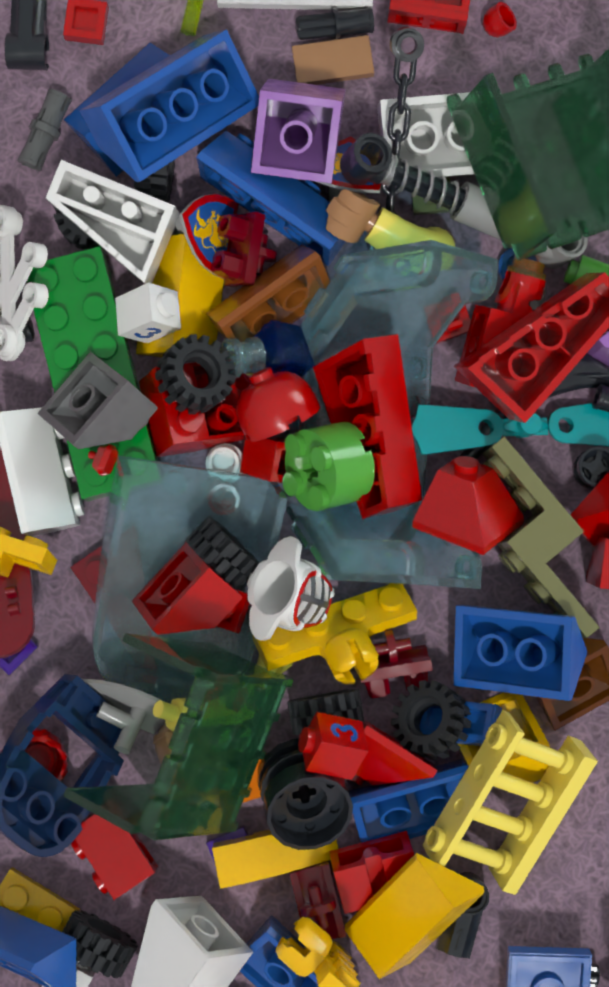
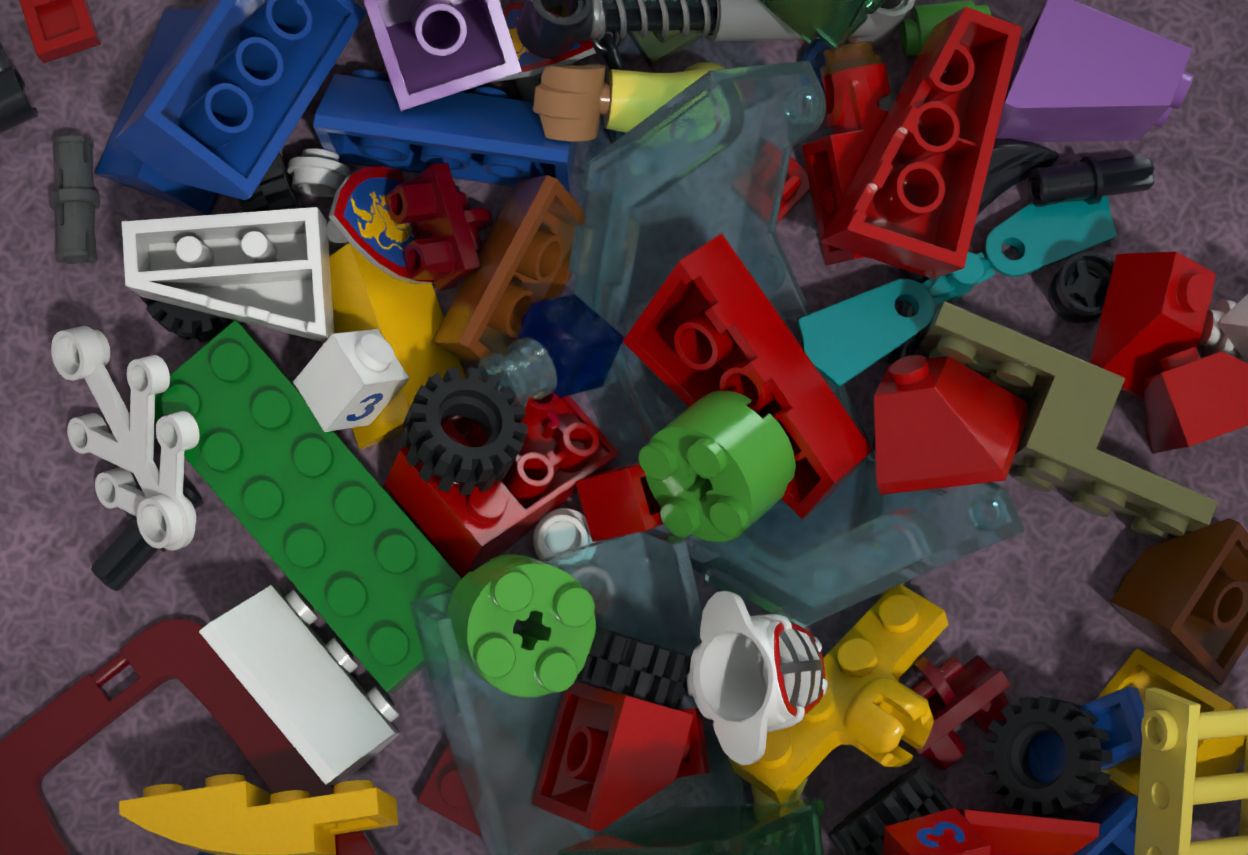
camera: 25 degrees left, 5 degrees down
(97, 406) = (345, 545): flat silver slope -> none
(104, 459) = (392, 617): red rock -> none
(175, 477) = (557, 630): none -> bright green brick
(189, 183) = (317, 173): none -> white plate
(274, 403) = (596, 417): red cylinder -> none
(517, 652) = (1119, 596): blue slope -> none

